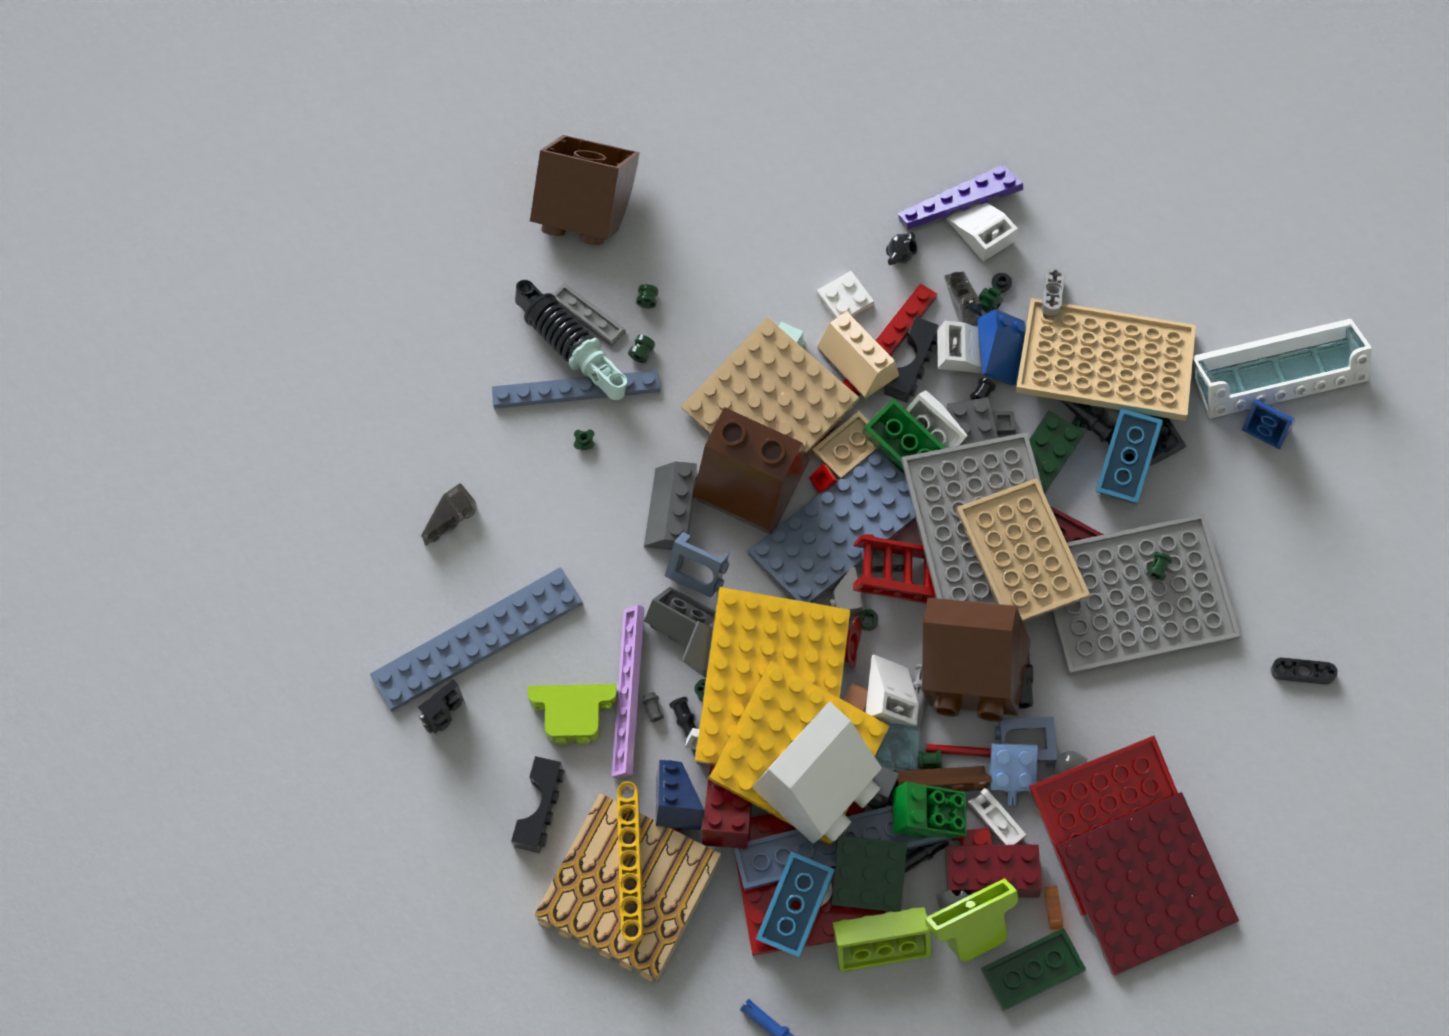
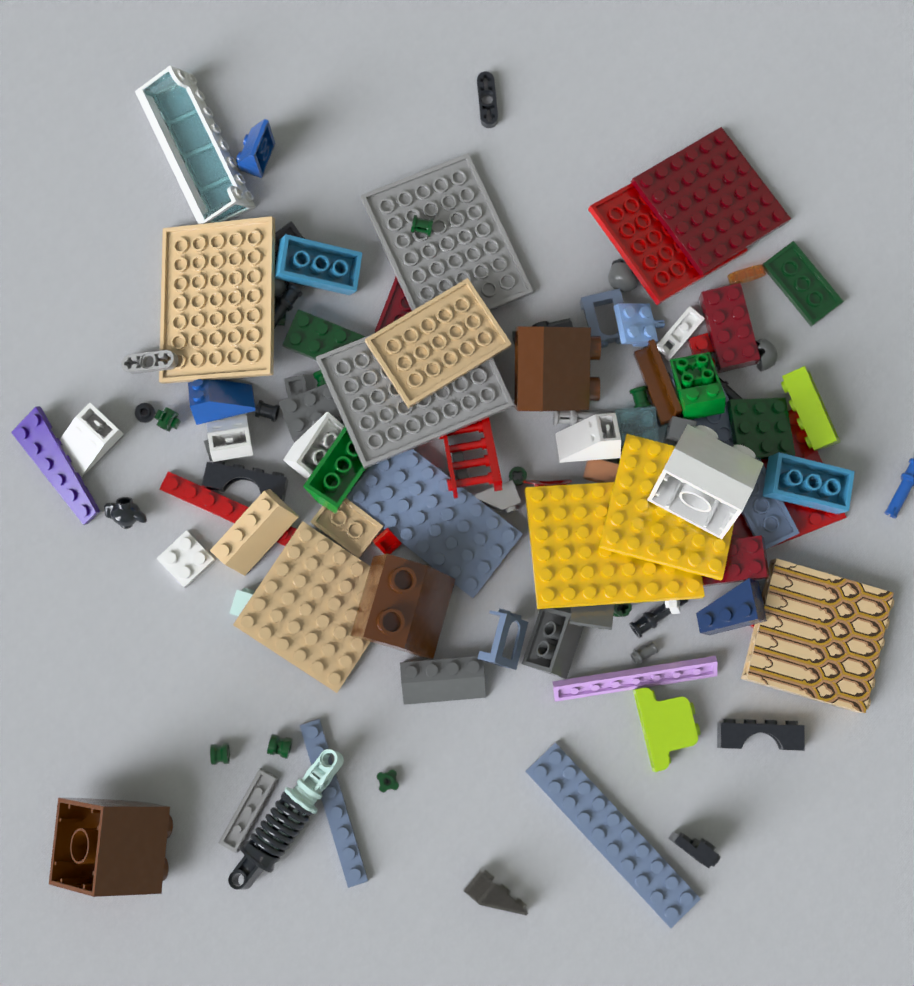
camera: 105 degrees left, 15 degrees up
(630, 873) = (816, 635): yellow beam -> none
(959, 750) = (623, 375): red piece -> none
(964, 298) = (170, 444): clear smoke slope -> none
(976, 921) = (783, 332): lime brick -> none

